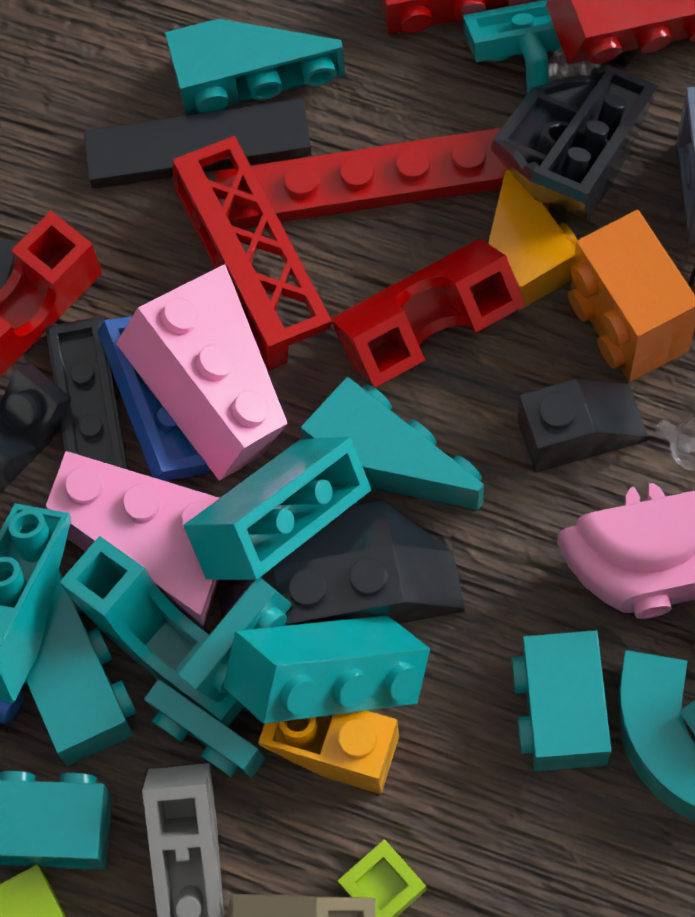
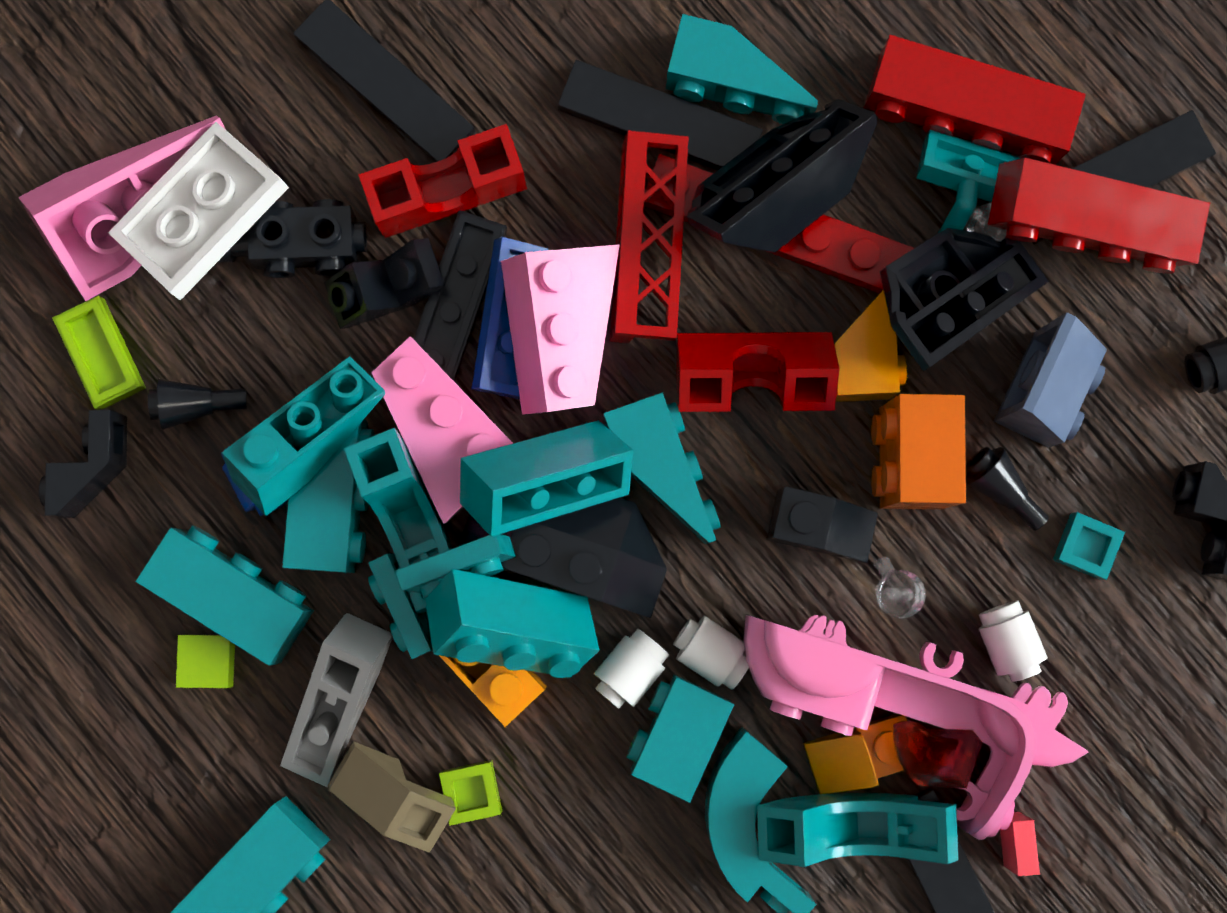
camera: 20 degrees right, 15 degrees up
(352, 118) = (785, 178): none -> black wedge
(474, 664) = (630, 669): none -> white brick
(546, 601) = (712, 652): none -> white brick

